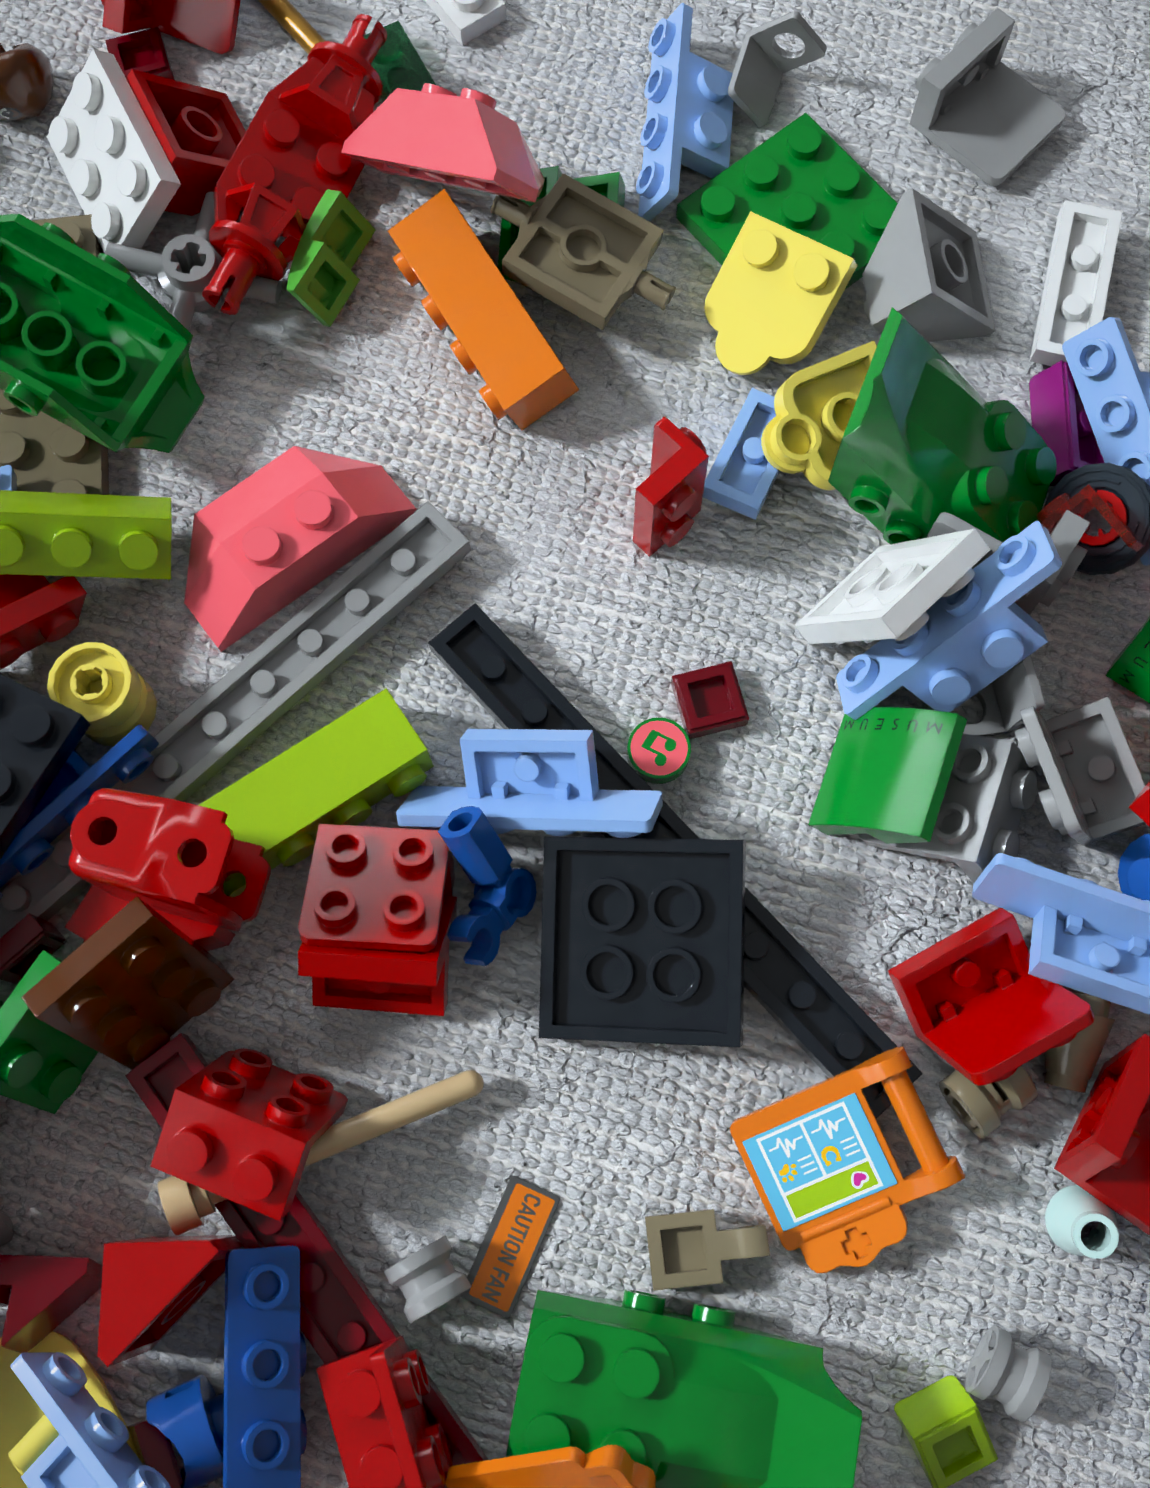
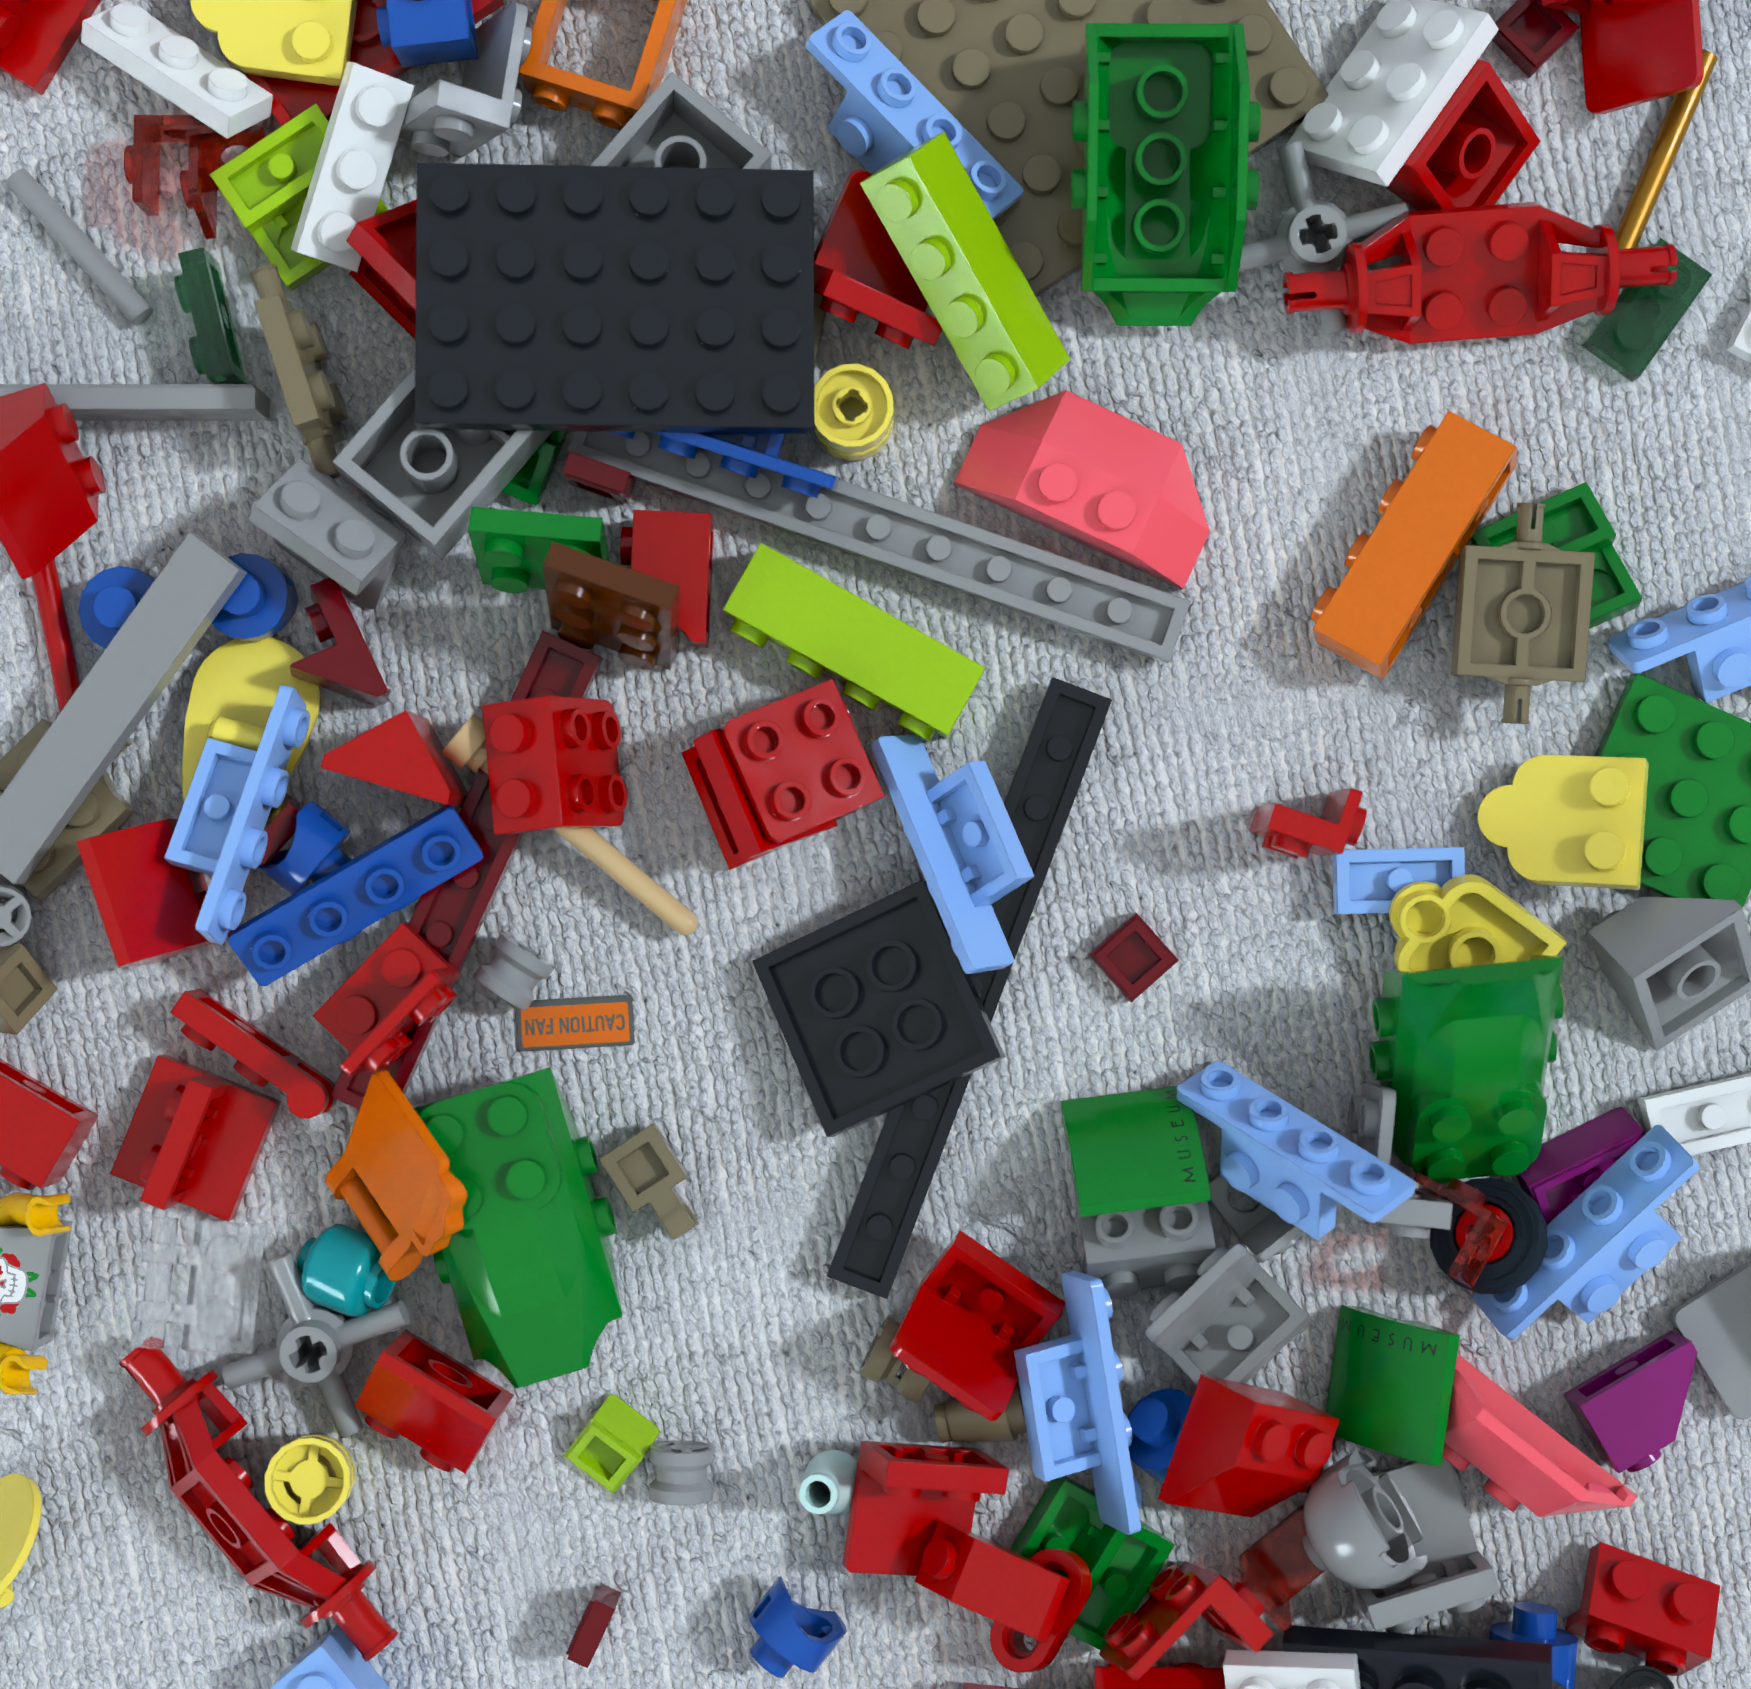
camera: 60 degrees right, 15 degrees up
(167, 856) = (728, 584): red piece -> none
(325, 254) = (1406, 355): bright green slope -> none
(448, 142) = (1558, 434): coral wedge -> none
(499, 890) = (860, 862): blue bar -> none
(658, 750) = (1061, 935): tile -> none
(831, 1169) = (769, 1258): piece -> none
(894, 589) = (1302, 1078): white plate -> none

